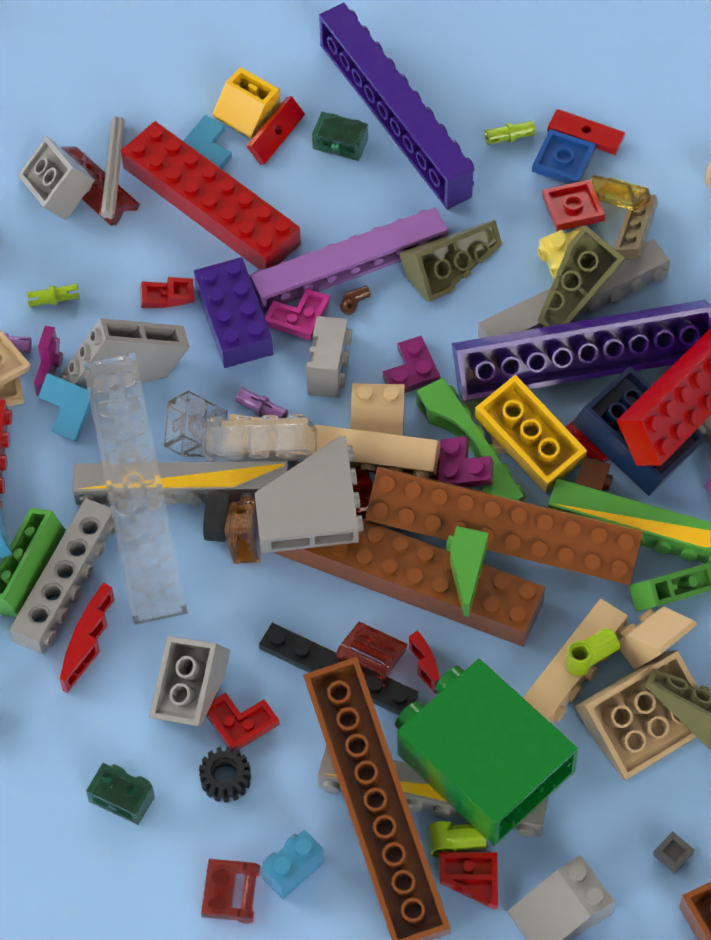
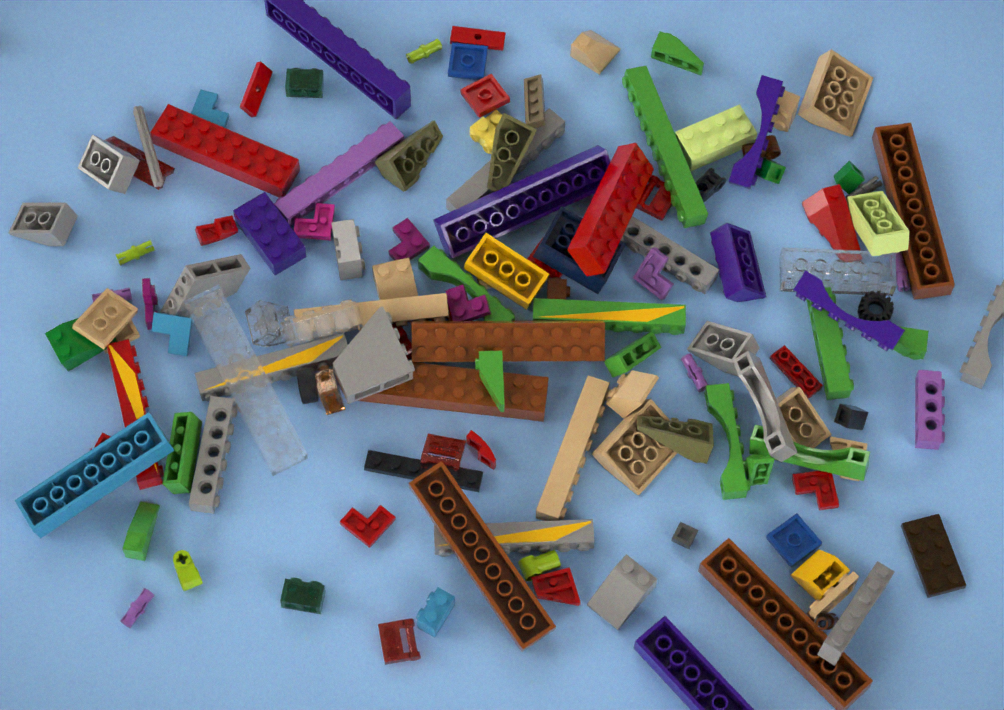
camera: 20 degrees left, 5 degrees up
(84, 643) = (242, 498): red slope -> none
(188, 680) = (324, 506): light grey slope -> none
(230, 789) = (367, 552): black tyre -> none
(246, 102) = (229, 73): yellow slope -> none
(259, 405) = (311, 297): medium lavender pin -> none
(351, 299) = (349, 202): reddish brown arm -> none
(484, 749) = (543, 500): green brick -> none
(591, 650) = (593, 413): lime piece -> none
(619, 192) = (515, 78): clear yellow panel -> none

